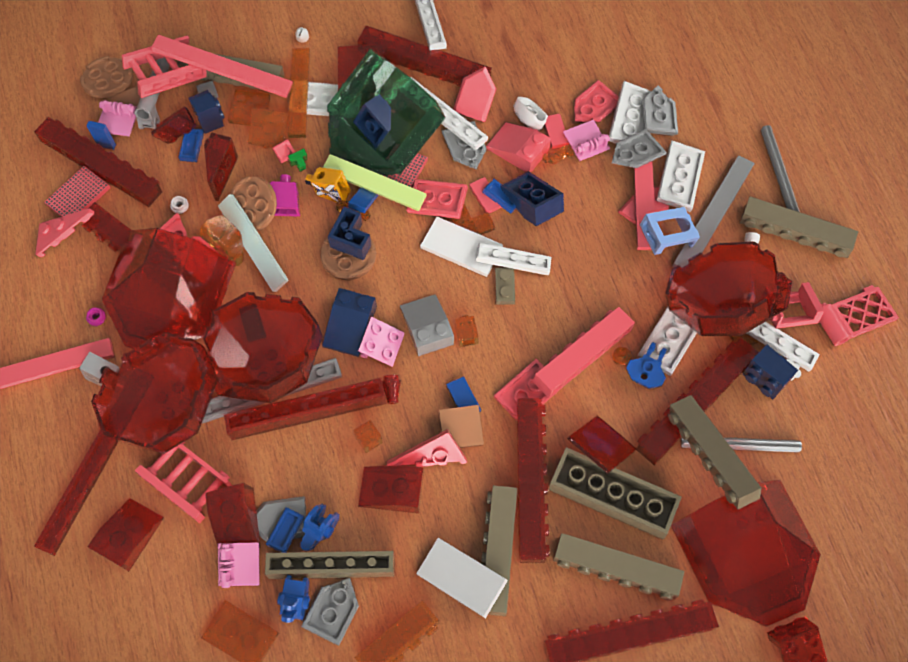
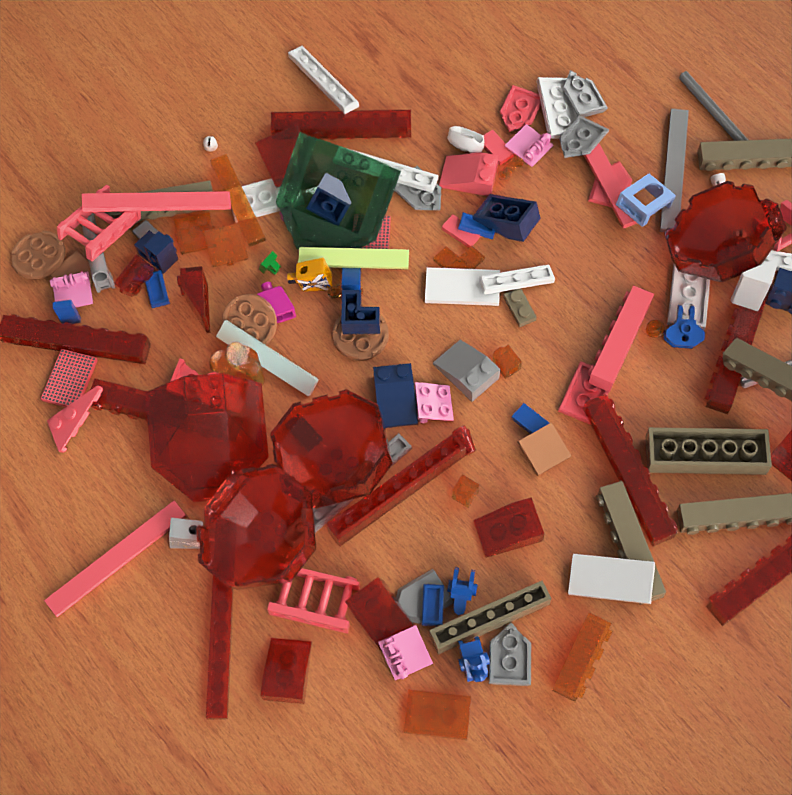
camera: 20 degrees left, 0 degrees up
(92, 313) = (150, 481): dark pink plate -> none
(179, 200) = (173, 346): white plate -> none
(283, 150) = (251, 261): coral tile -> none
(436, 450) = (532, 479): coral wing -> none
(442, 198) = (424, 249): coral tile -> none
(475, 95) = (408, 140): coral tile -> none
(602, 444) = (677, 412): clear red piece -> none
(680, 176) = (629, 146): white tile -> none
(731, 351) = (754, 285): none -> white slope

